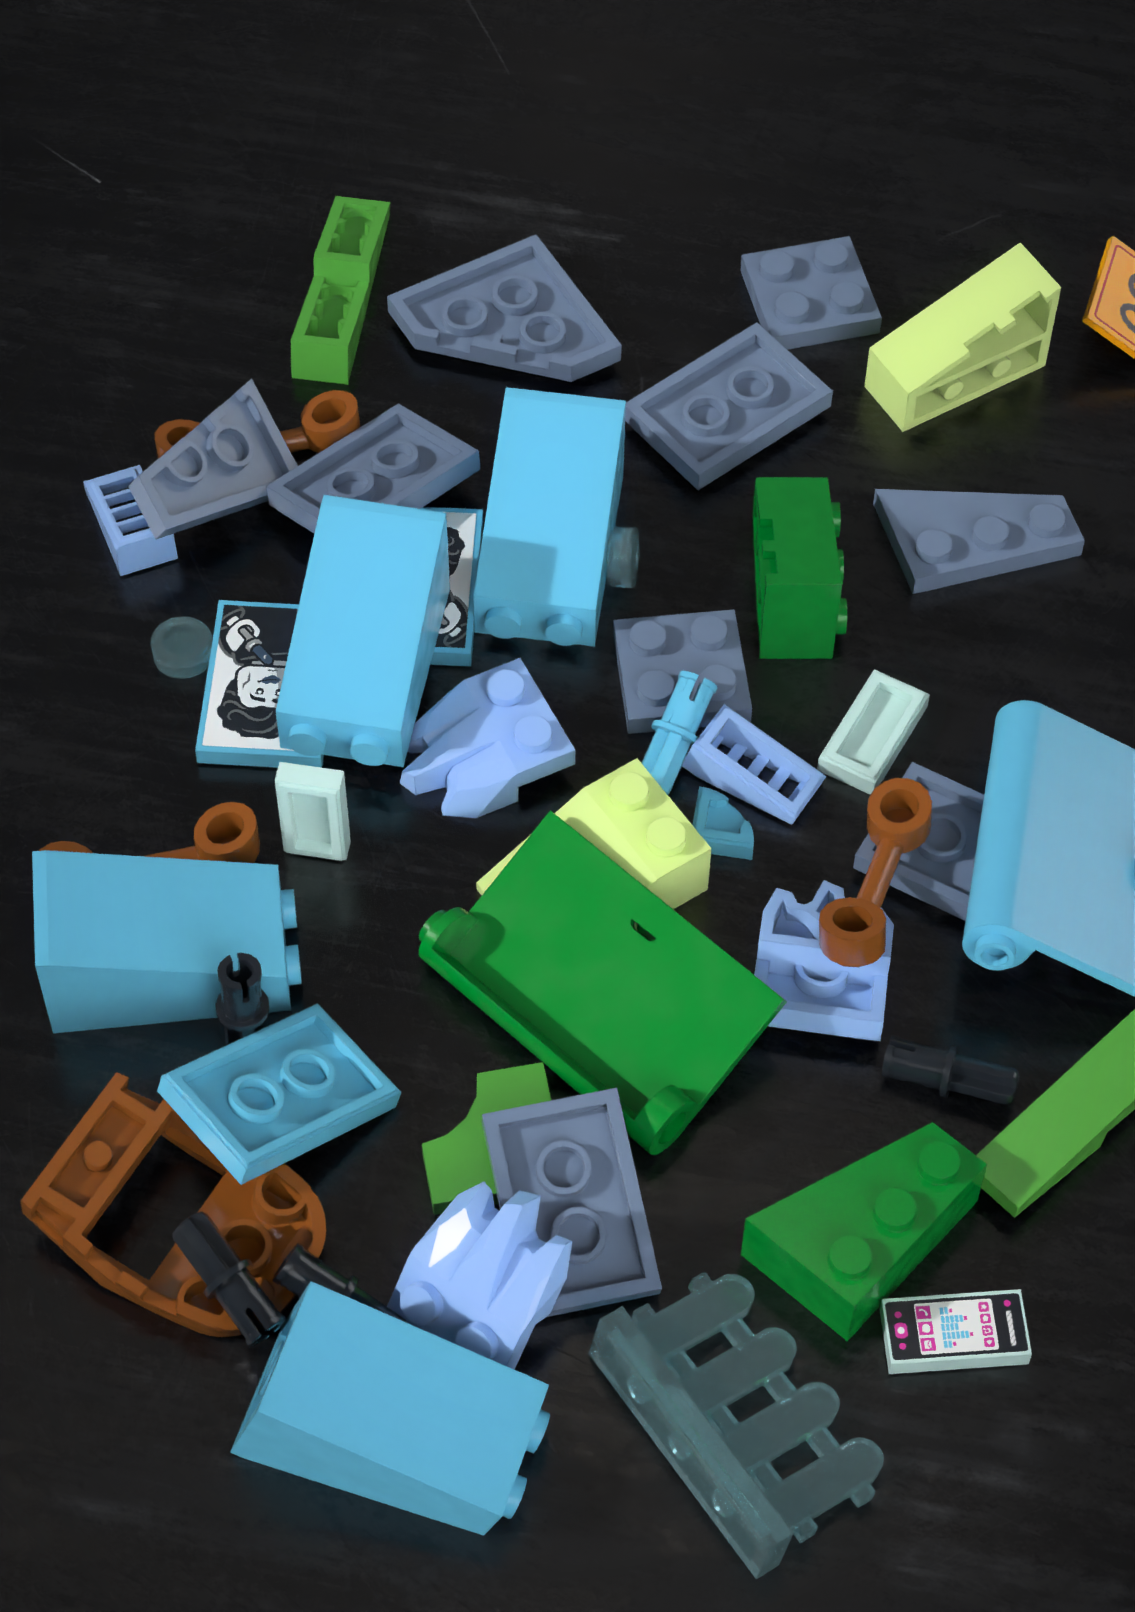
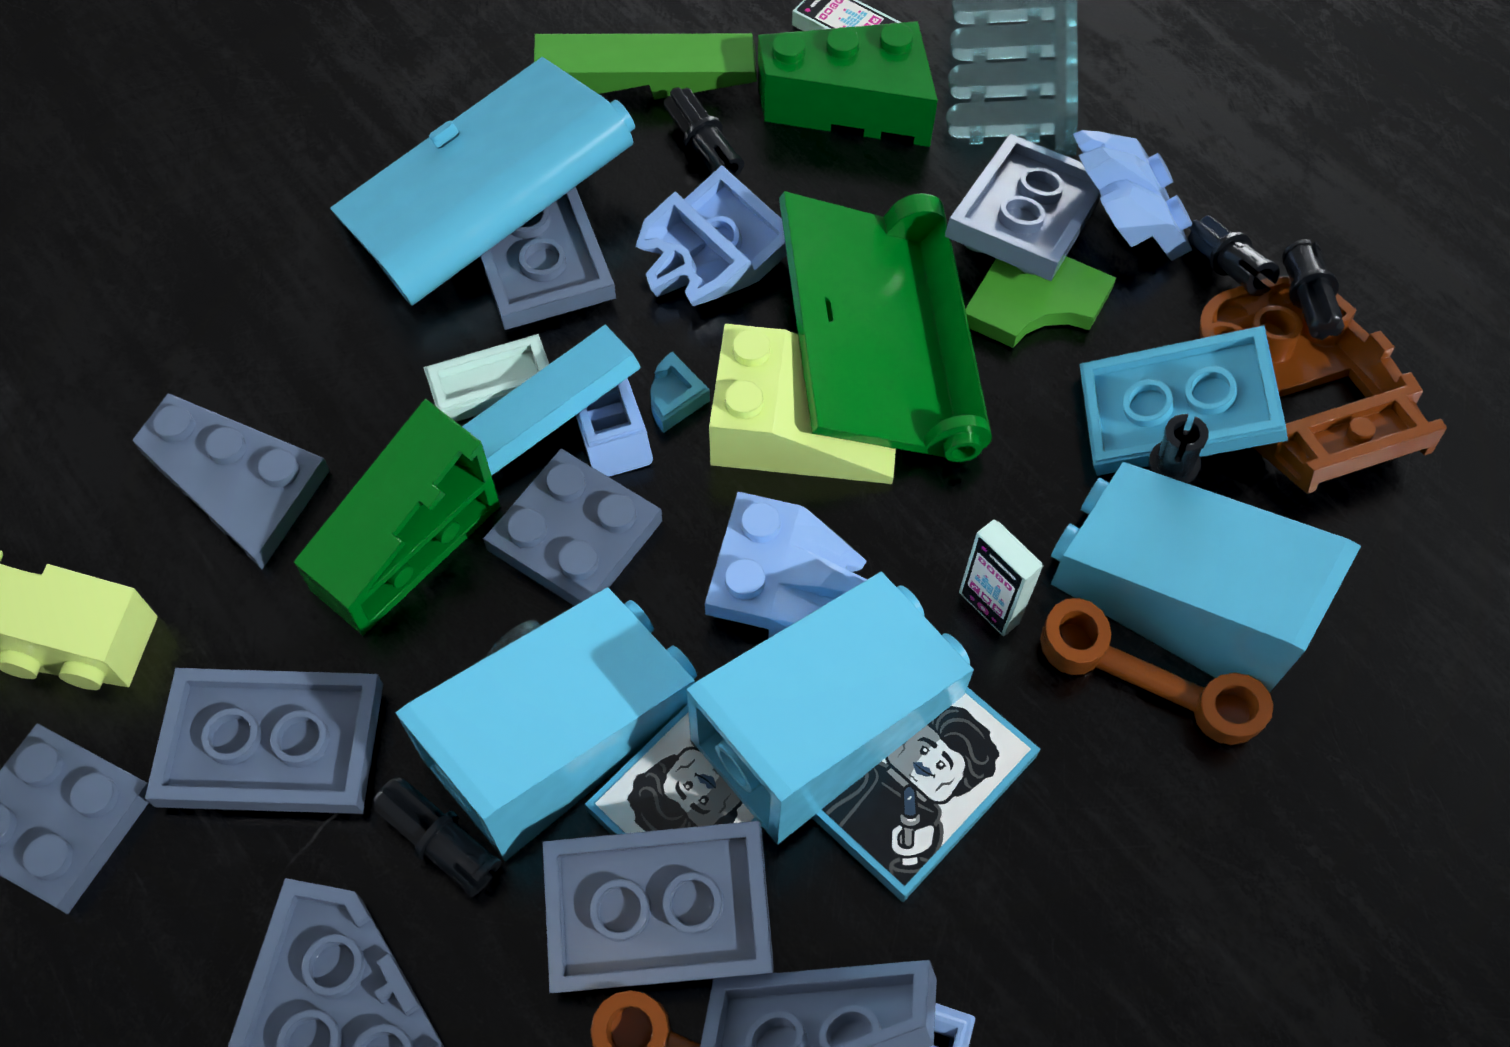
camera: 140 degrees left, 5 degrees up
(181, 647) = (970, 883): clear light blue tile -> none
(393, 1414) = (1257, 165): medium azure slope -> none
(677, 729) = (641, 459): medium azure axle -> none
(797, 727) = (552, 397): none -> medium azure tile
(897, 822) = (692, 204): dark orange piece -> none

